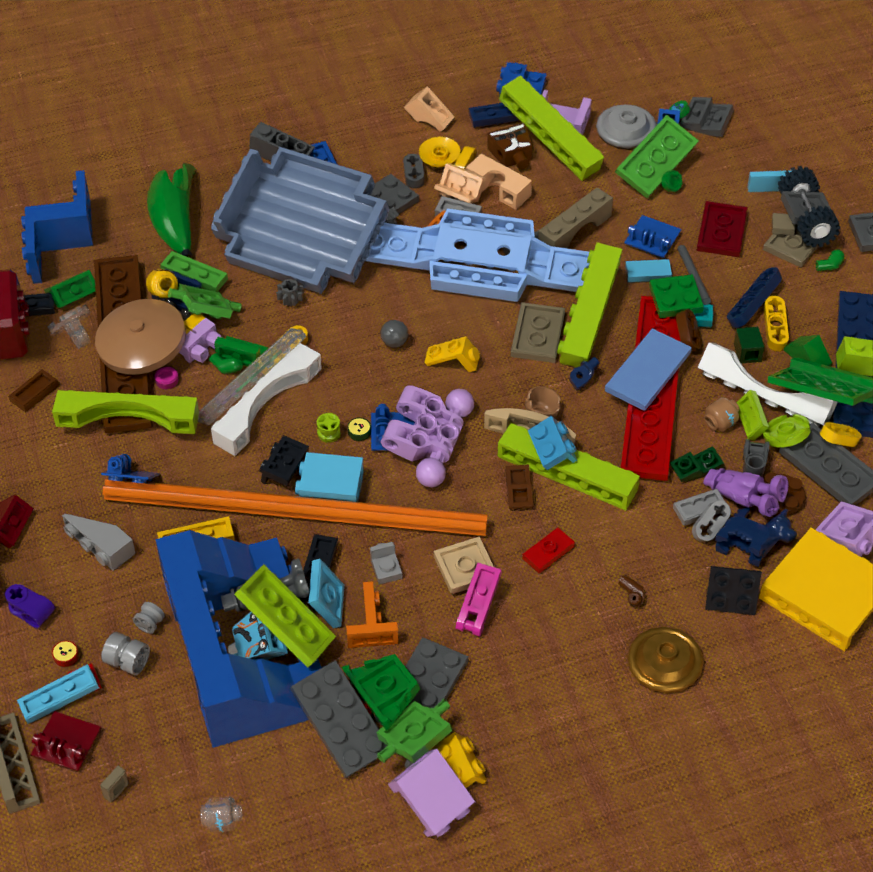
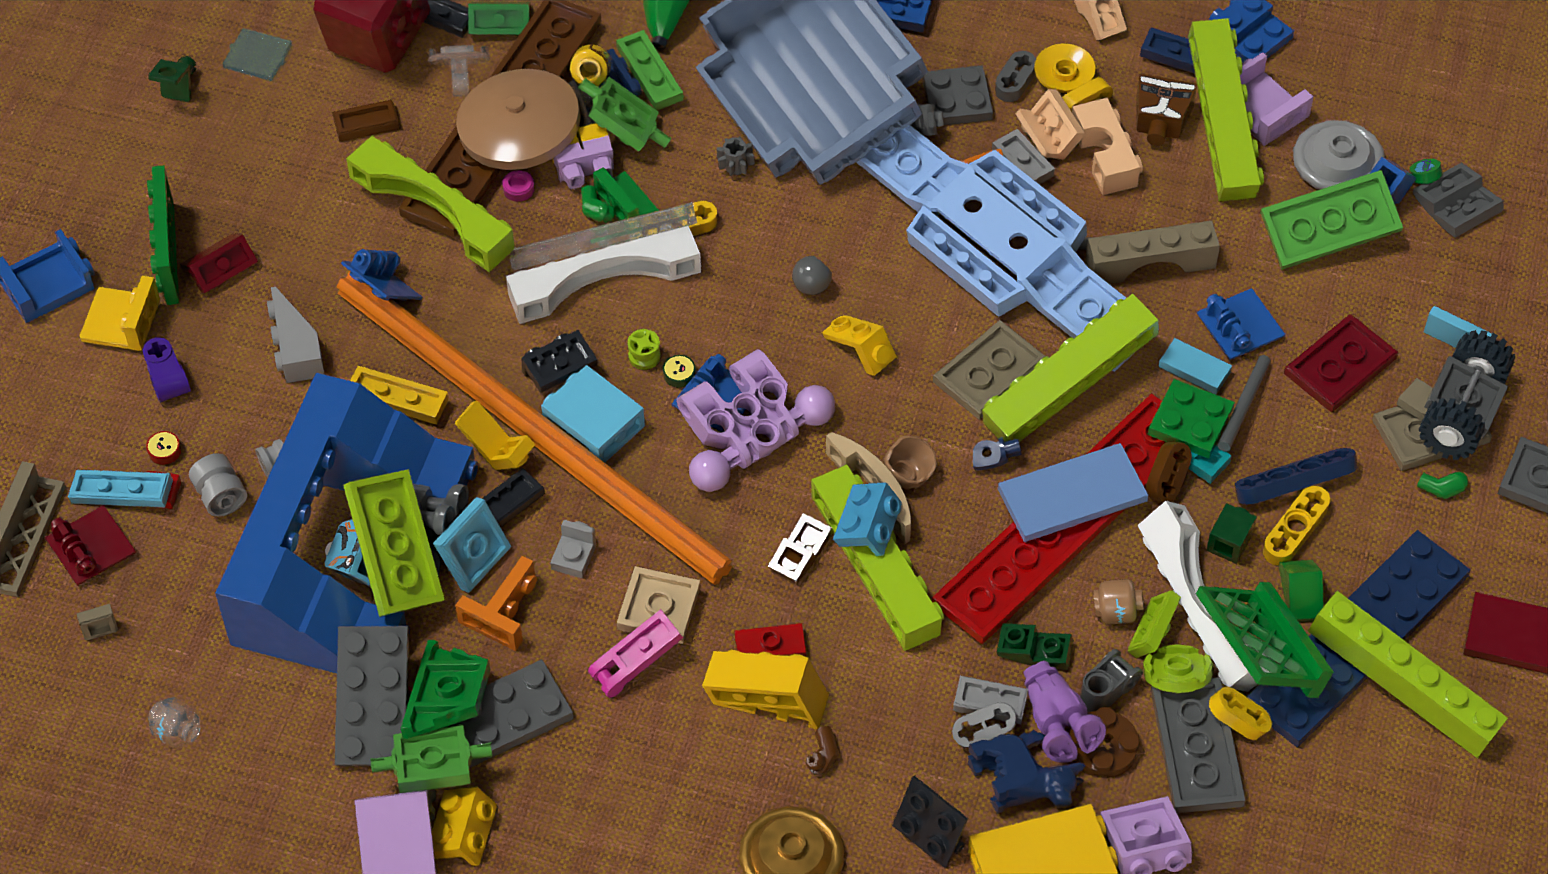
camera: 35 degrees right, 5 degrees up
(285, 531) = (492, 440): none -> yellow bracket
(569, 571) = (767, 683): none -> yellow wedge
(672, 181) = (1327, 263): green tile -> none

